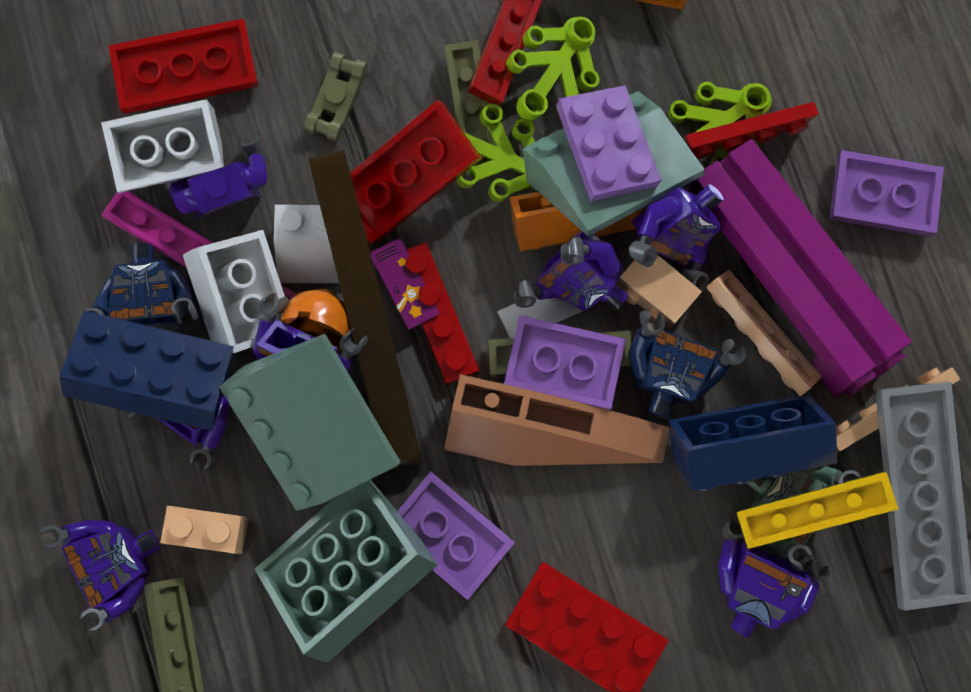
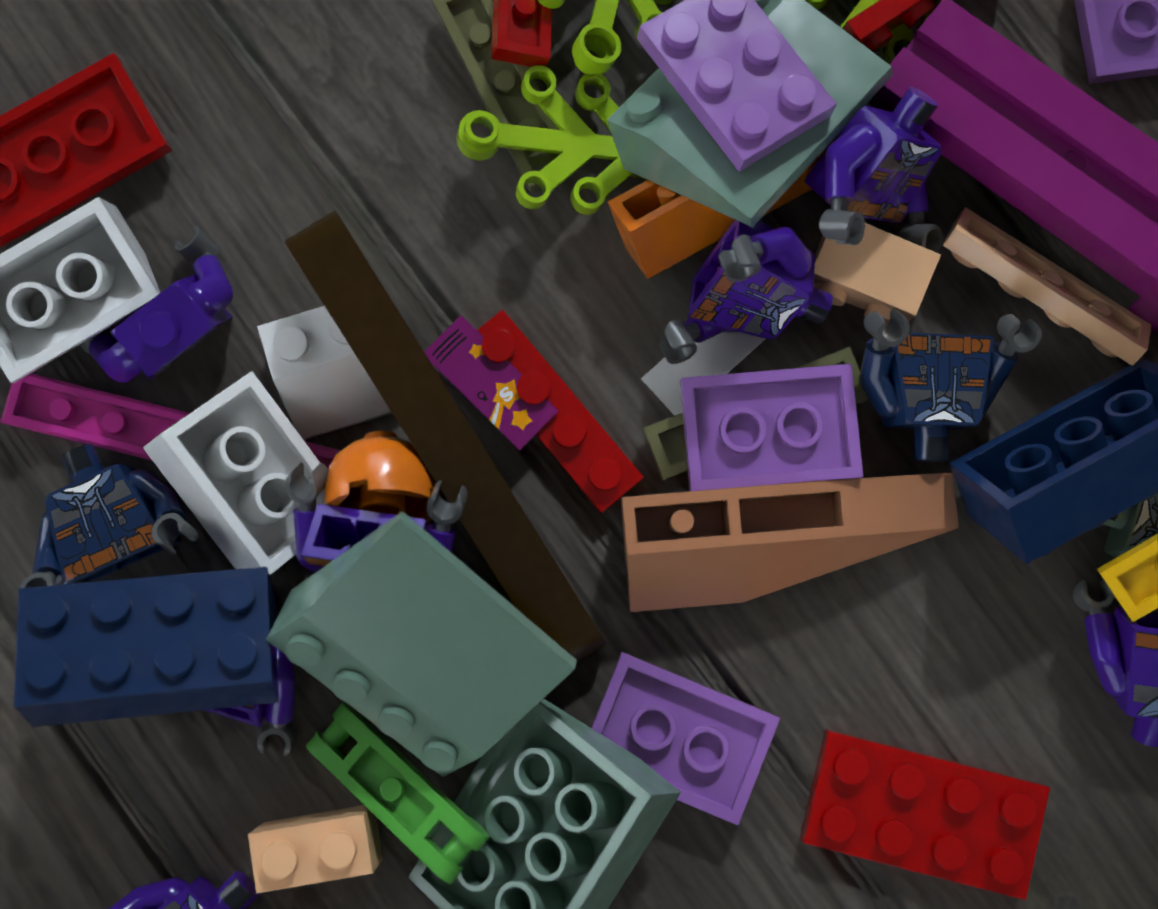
camera: 10 degrees left, 5 degrees up
(265, 511) = (396, 792): none -> bright green plate
(336, 97) = (294, 130): olive plate -> none
(411, 170) = (446, 206): red plate -> none

